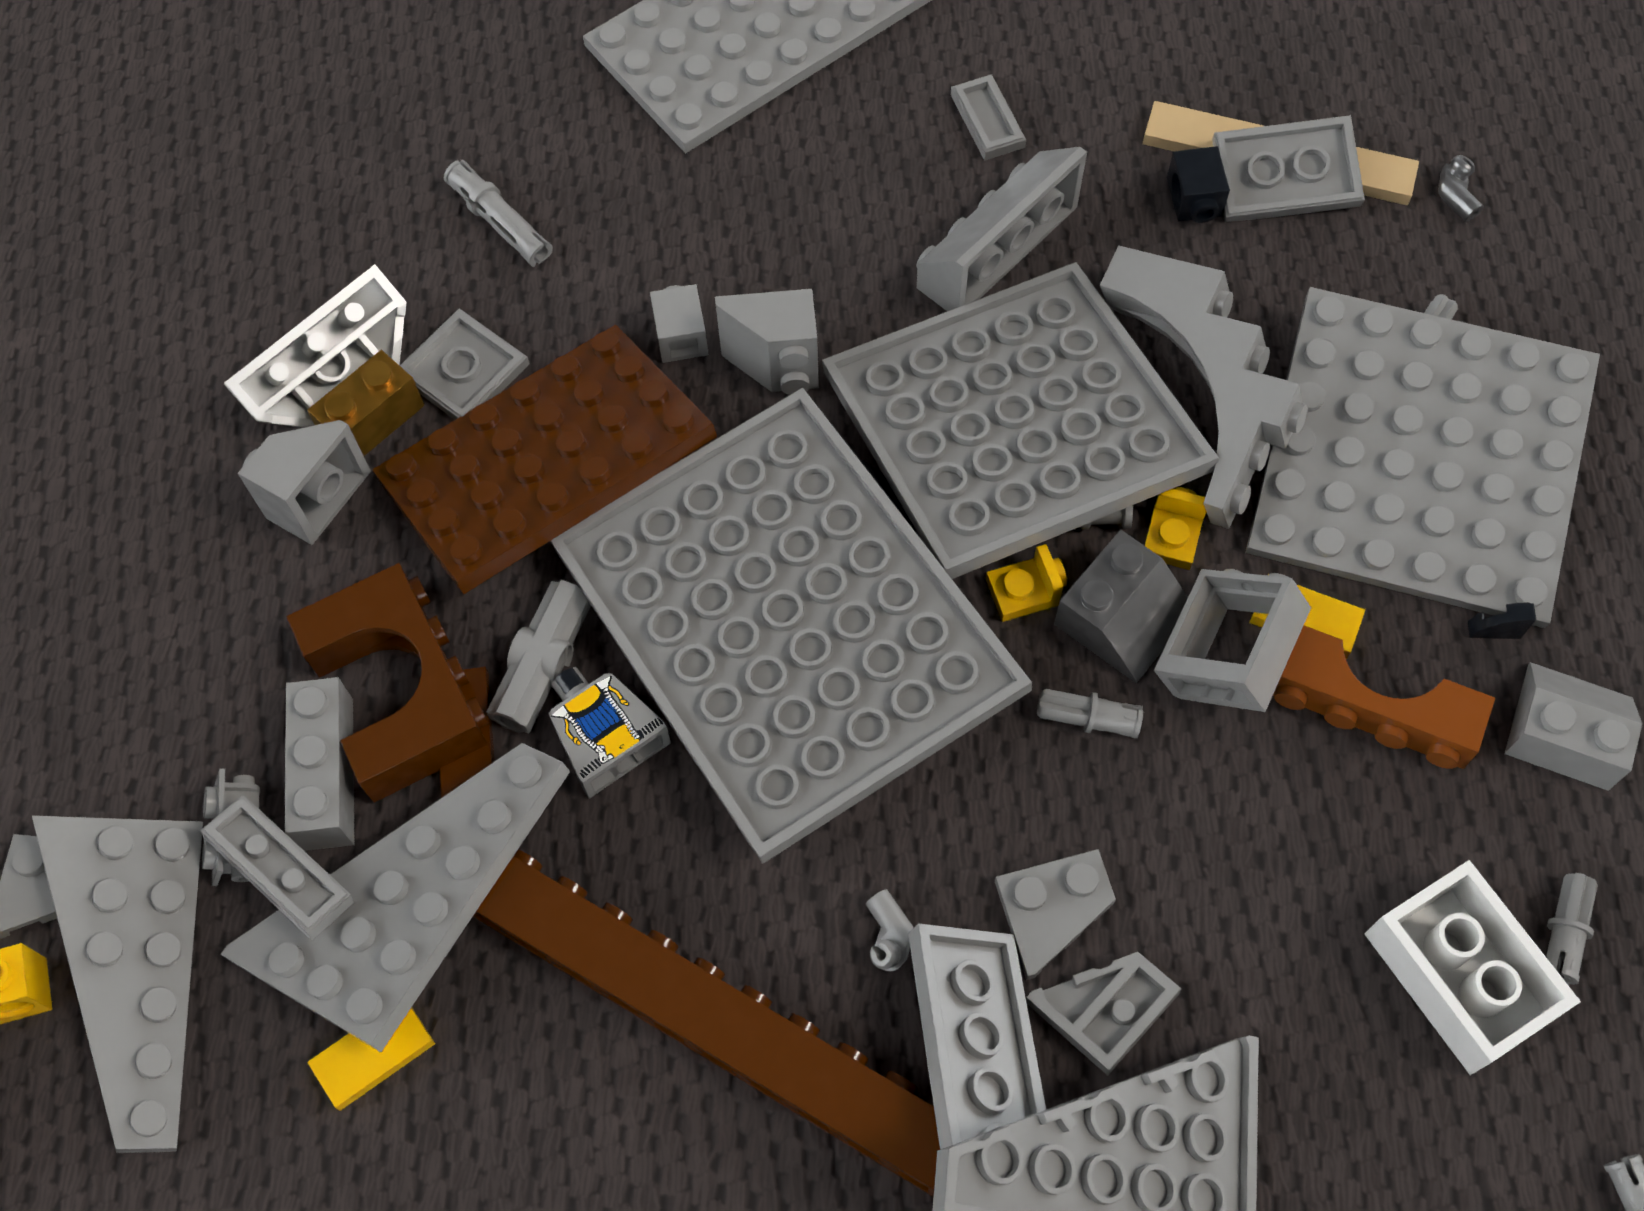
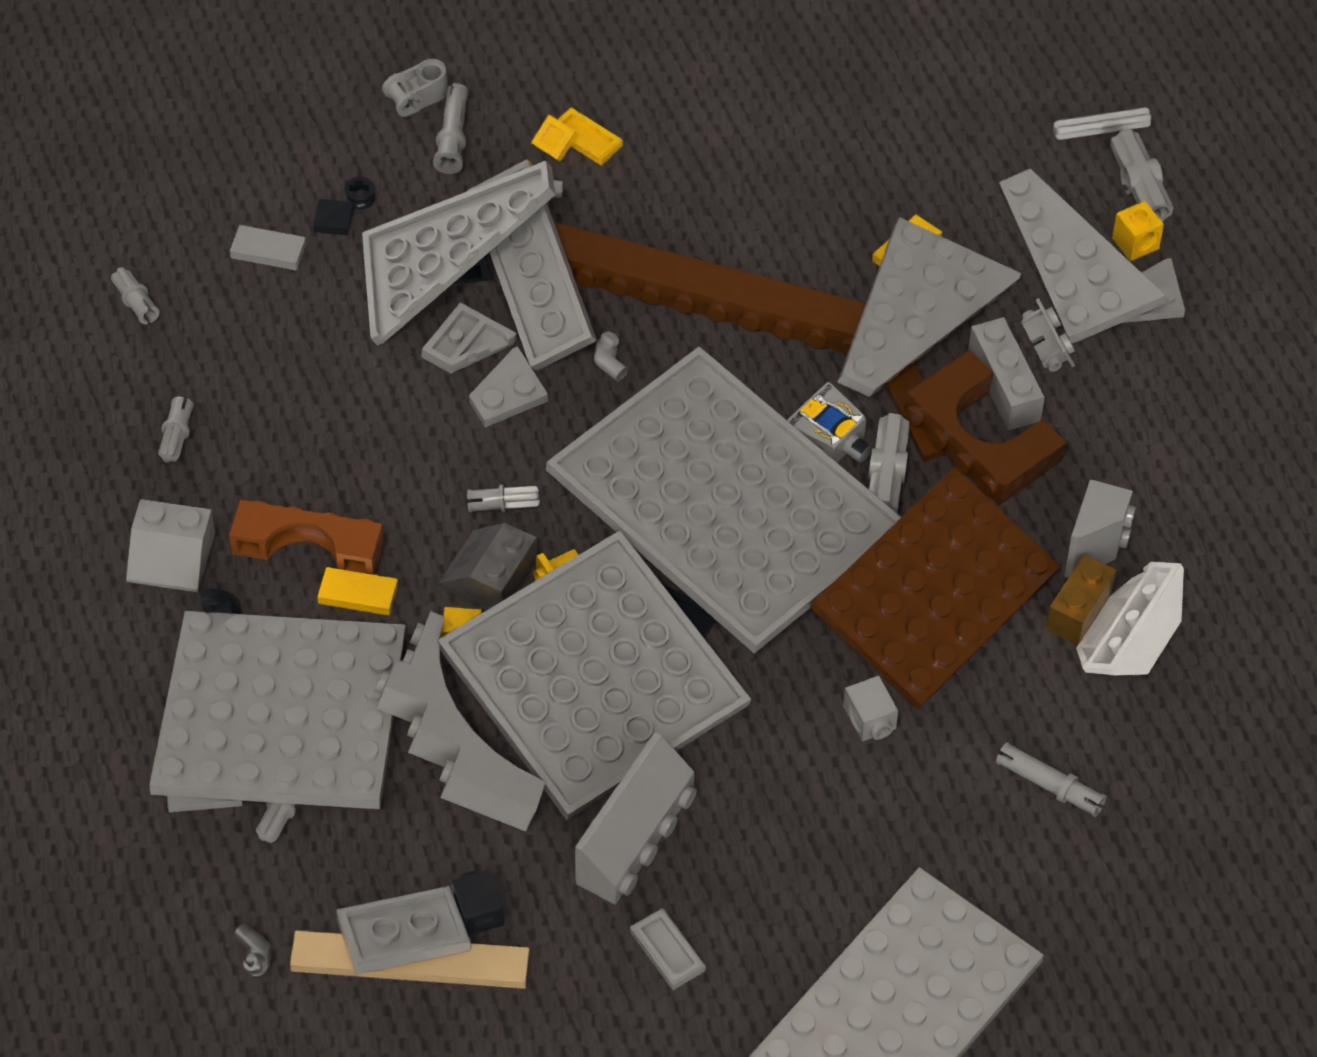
camera: 165 degrees right, 10 degrees down
(277, 867) = (1000, 300): light grey tile -> none
(463, 365) = (1028, 658): light grey tile -> none
(771, 337) = (791, 688): light grey slope -> none
(1229, 684) = (437, 522): light grey window -> none
(1471, 967) = (243, 385): white brick -> none

